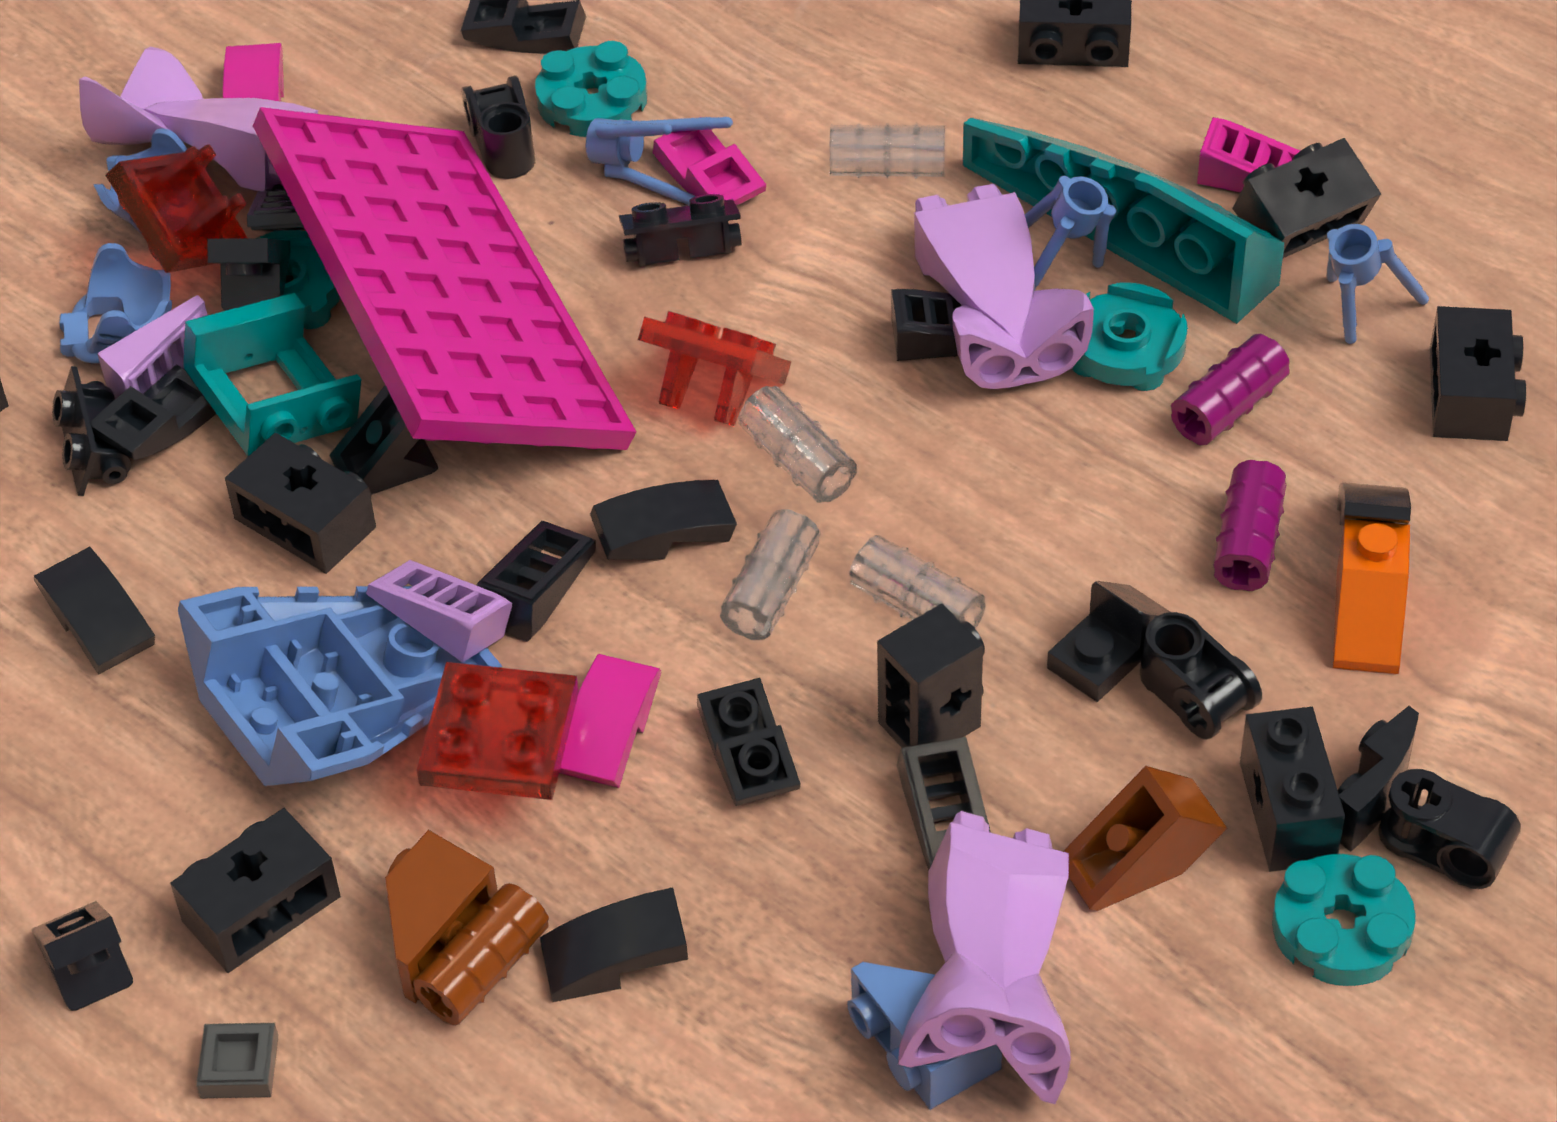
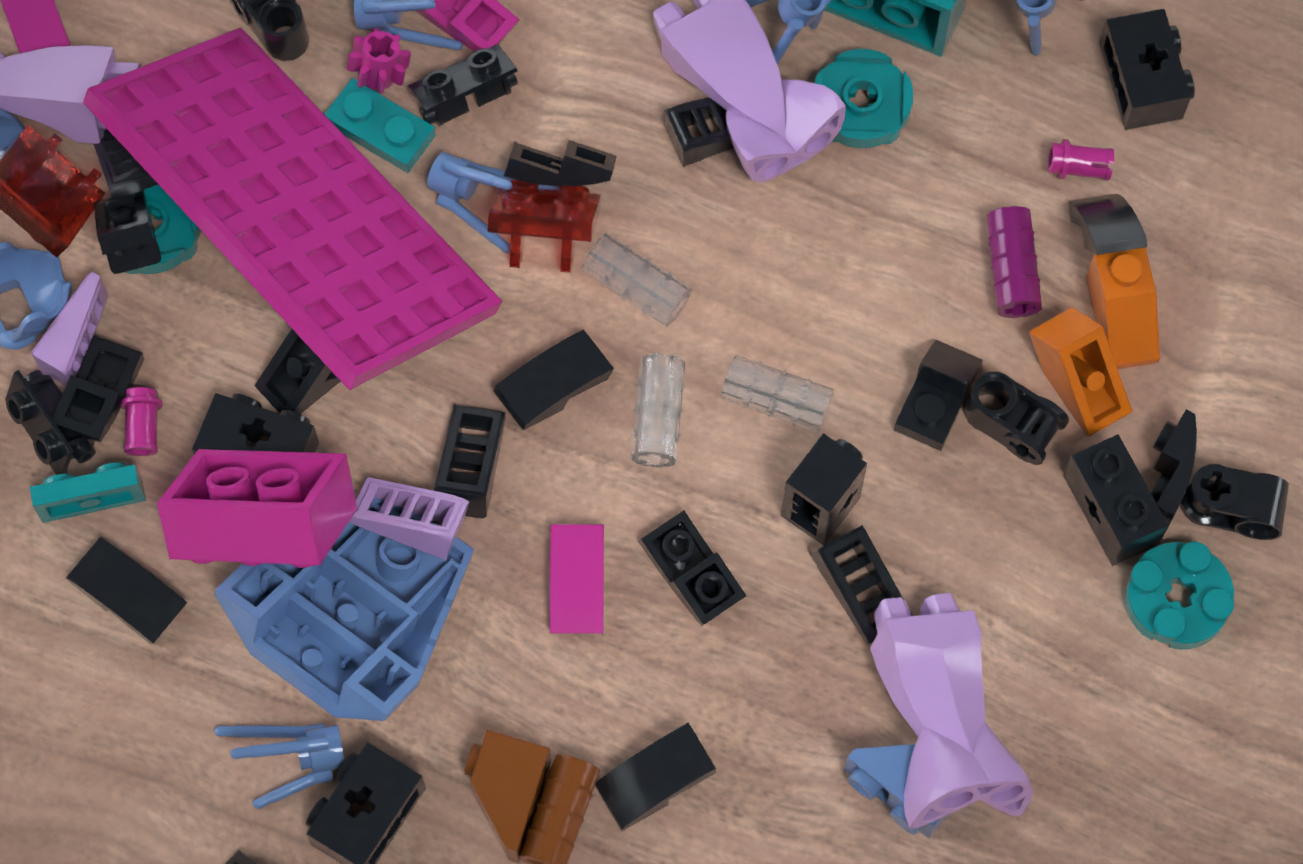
camera: 20 degrees left, 20 degrees up
(97, 504) = (71, 496): none -> teal plate
(194, 442) = (141, 421): none -> dark pink pin
(224, 813) = (317, 749): none -> medium blue plant
(260, 335) = (146, 296): teal panel -> none
(264, 537) = (257, 507): none -> dark pink brick
(498, 731) = (508, 627): clear red plate -> none
(576, 251) = (380, 125): none -> teal plate
(596, 186) = (378, 60): none -> dark pink gear
(625, 307) = (458, 179): none -> medium blue plant
(764, 320) = (578, 167): none -> black slope
(1142, 838) = (1017, 574): dark orange slope -> none
(1230, 389) = (961, 133): magenta axle -> none
(1296, 646) = (1081, 369): none -> orange slope
(1362, 446) = (1079, 161): none -> dark pink pin

